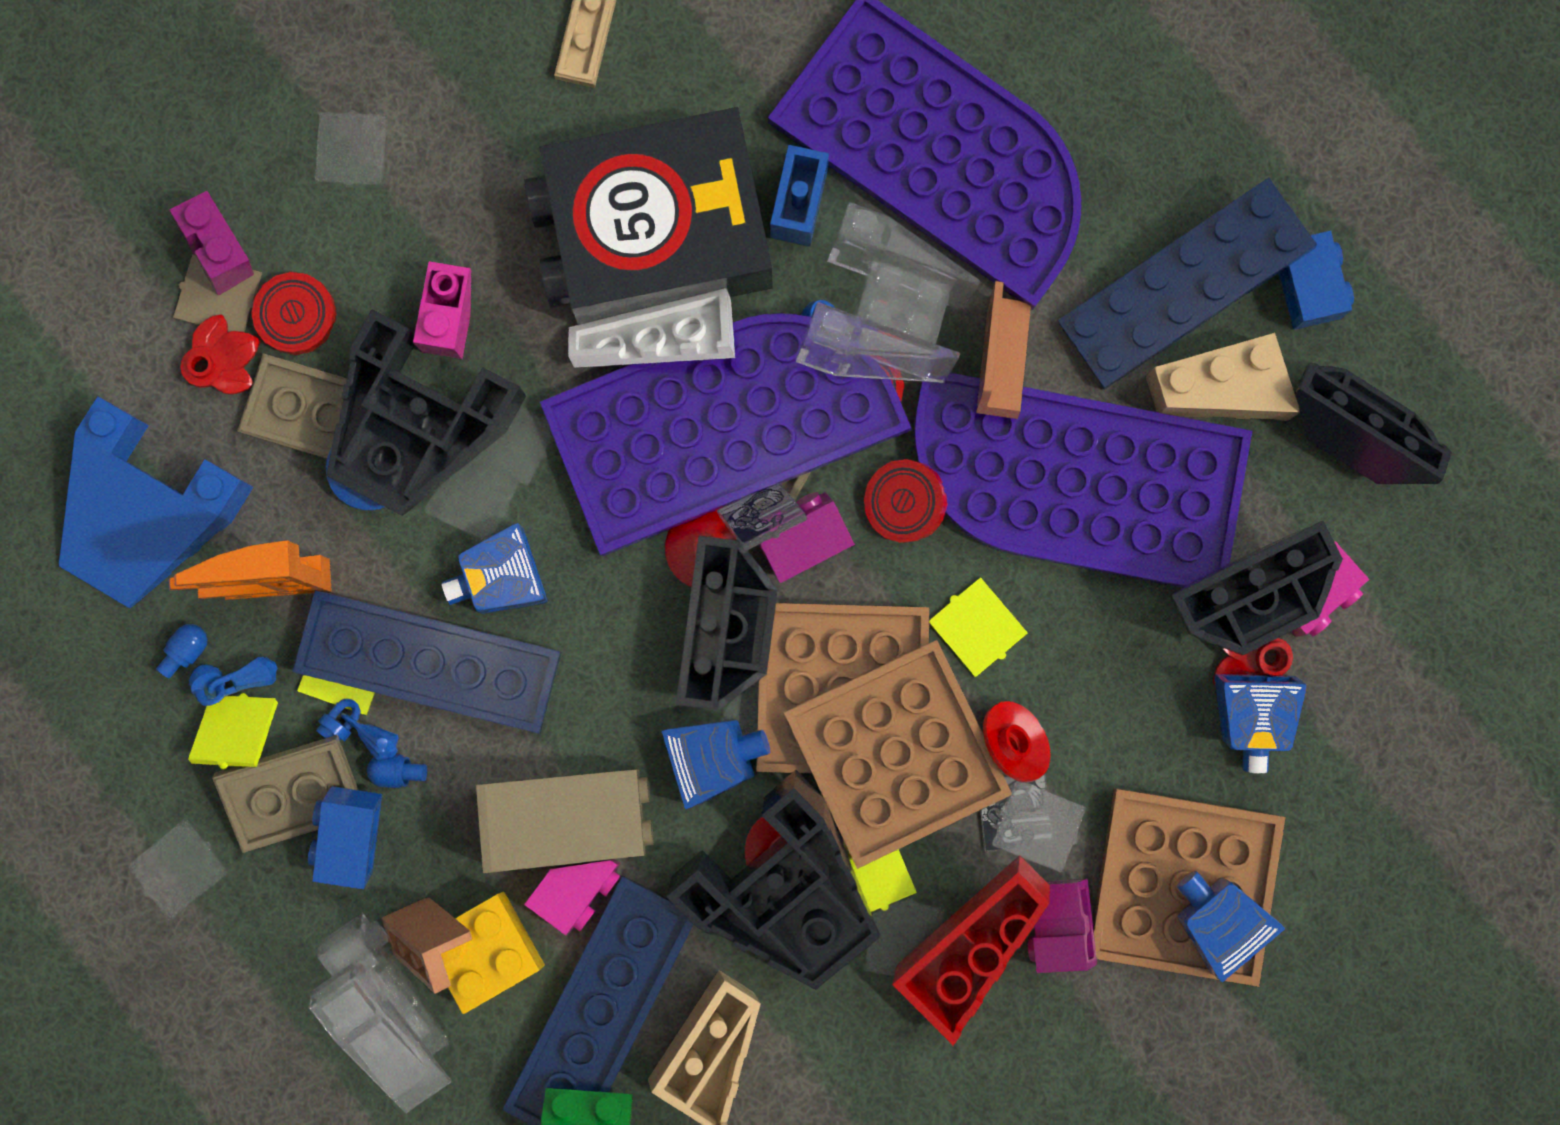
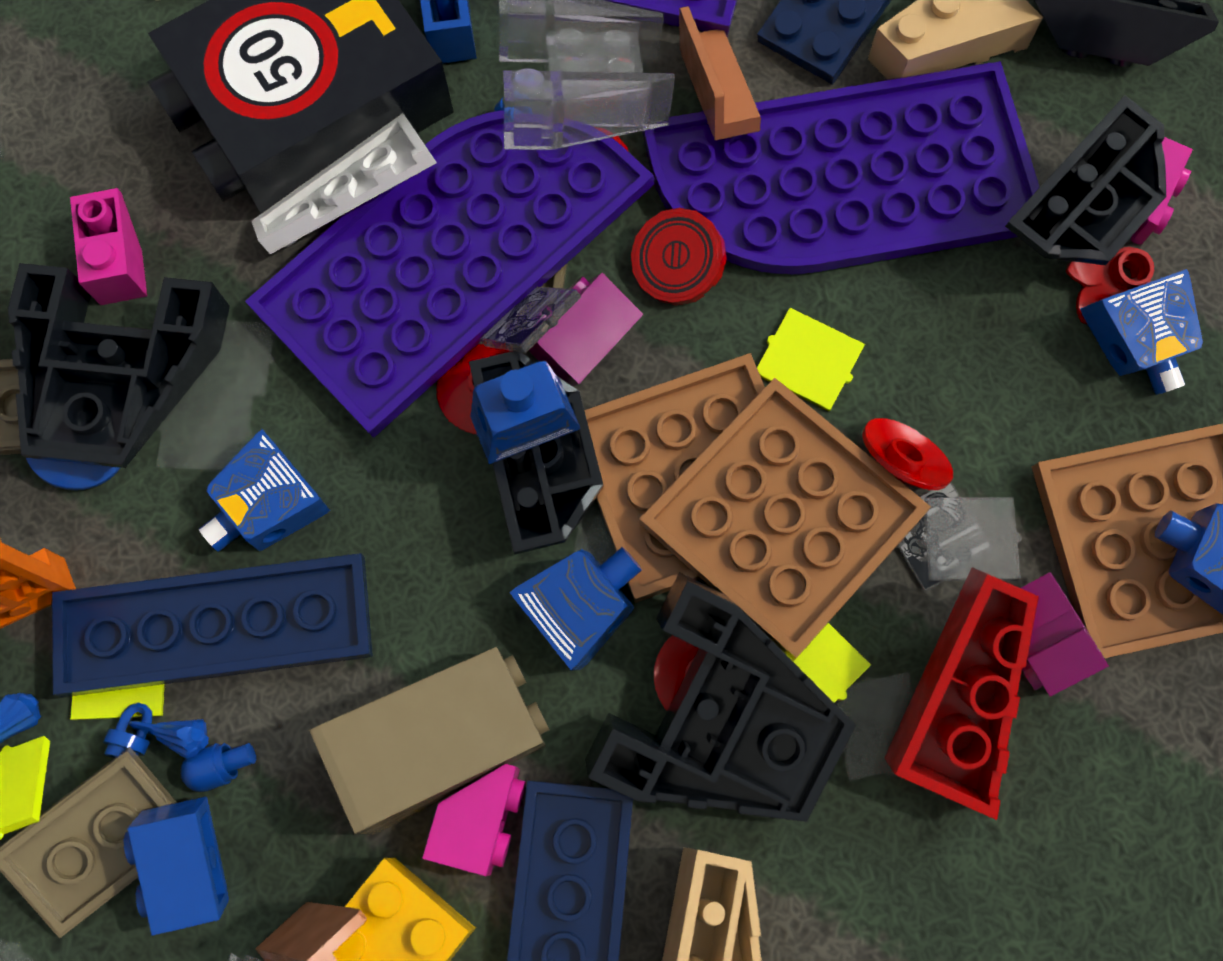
camera: 20 degrees left, 10 degrees down
(723, 602) = (521, 411): none -> blue torso

